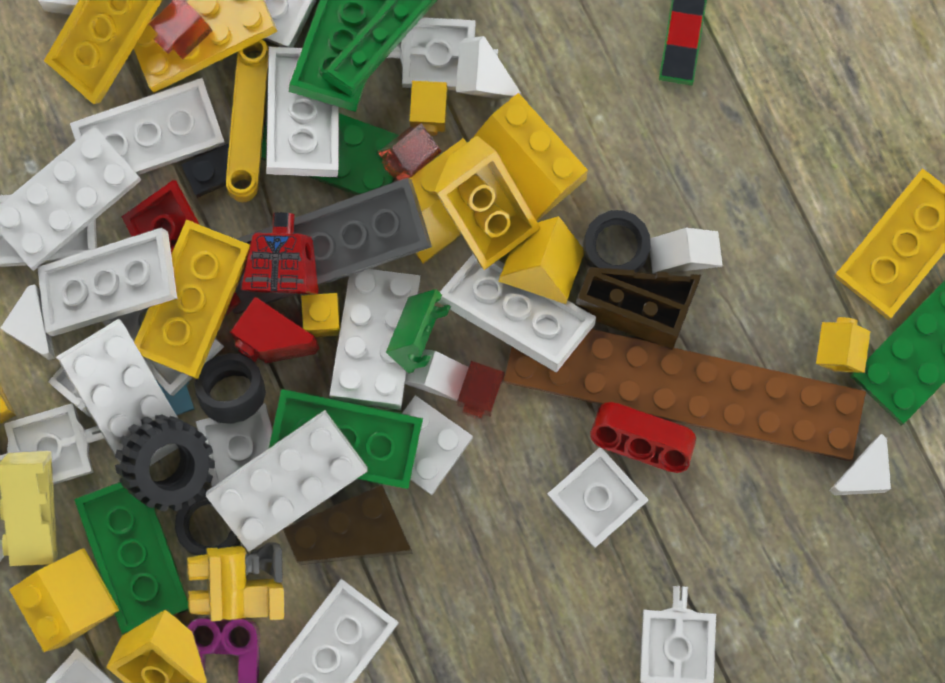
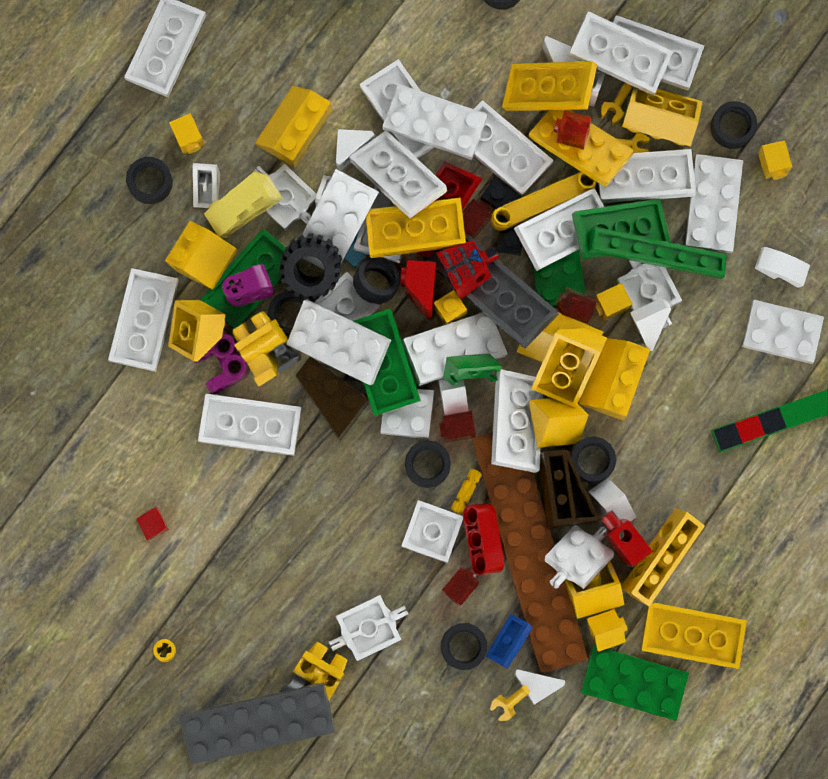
camera: 60 degrees right, 0 degrees up
(145, 553) = (251, 285): none -> magenta piece
(219, 215) = (475, 217): none -> clear red brick
(276, 192) = (509, 243): none -> black plate
(513, 429) = (432, 446): none -> black tyre
(568, 426) = (466, 491): none -> yellow axle
(688, 499) = (461, 586): none -> clear red brick
(733, 329) = (578, 557): none -> white plate
(745, 259) = (632, 546): none -> red torso
(776, 332) = (599, 595): none -> yellow slope
(788, 226) = (668, 550): none -> yellow brick
(789, 523) = (482, 645): none -> black tyre
(791, 477) = (509, 641): none -> blue plate
(870, 521) = (508, 703): none -> yellow bar

